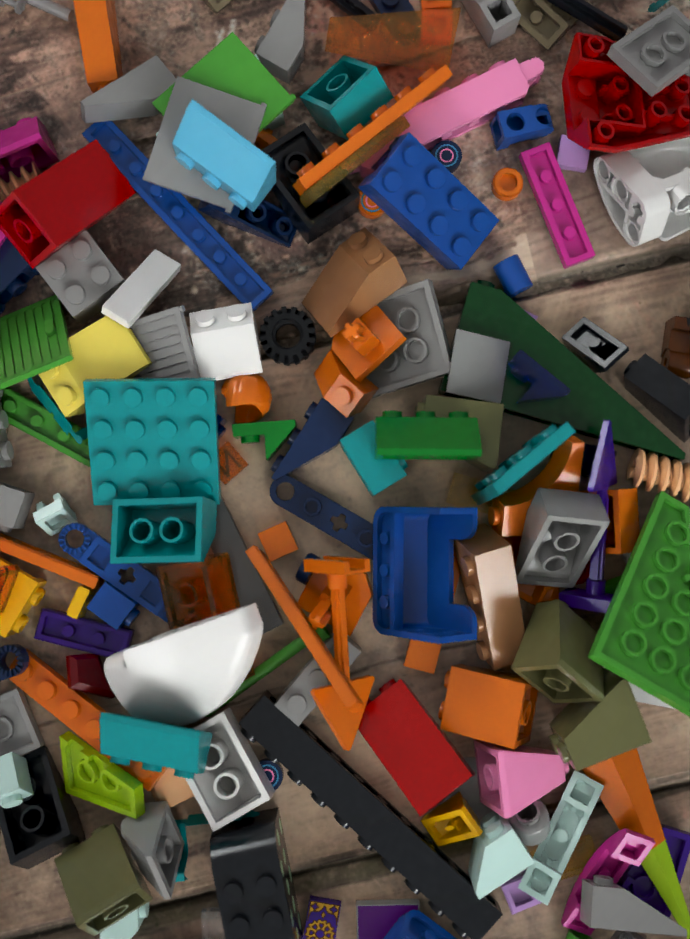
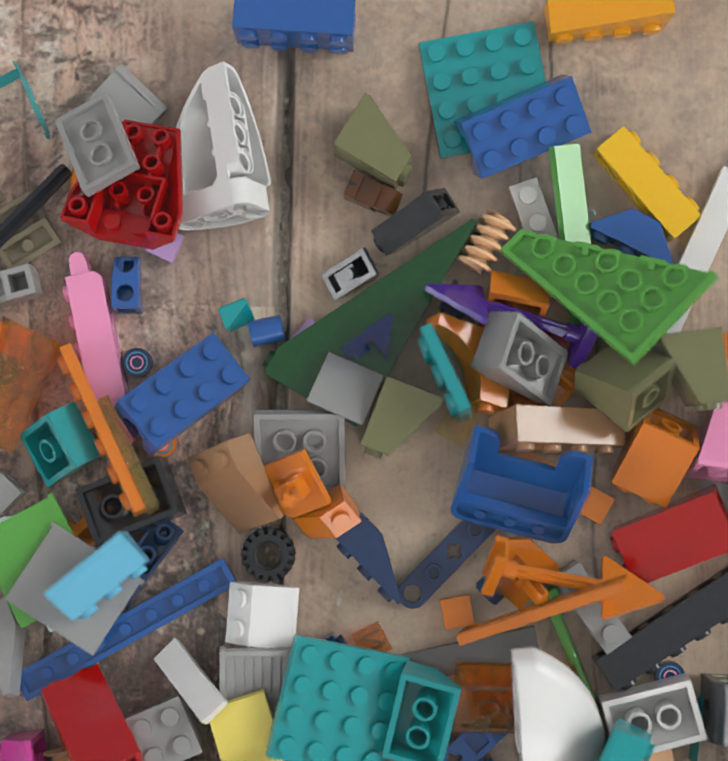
camera: 75 degrees left, 0 degrees up
(249, 395) = (316, 606): orange hair -> none
(275, 434) = (356, 590): green slope -> none
(375, 473) = (404, 505): teal brick -> none
(427, 436) = (400, 457): green slope -> none
(507, 184) = (177, 312): orange tile -> none
(521, 241) = (236, 314): none -> teal slope
(556, 205) = (210, 272): dark pink plate -> none

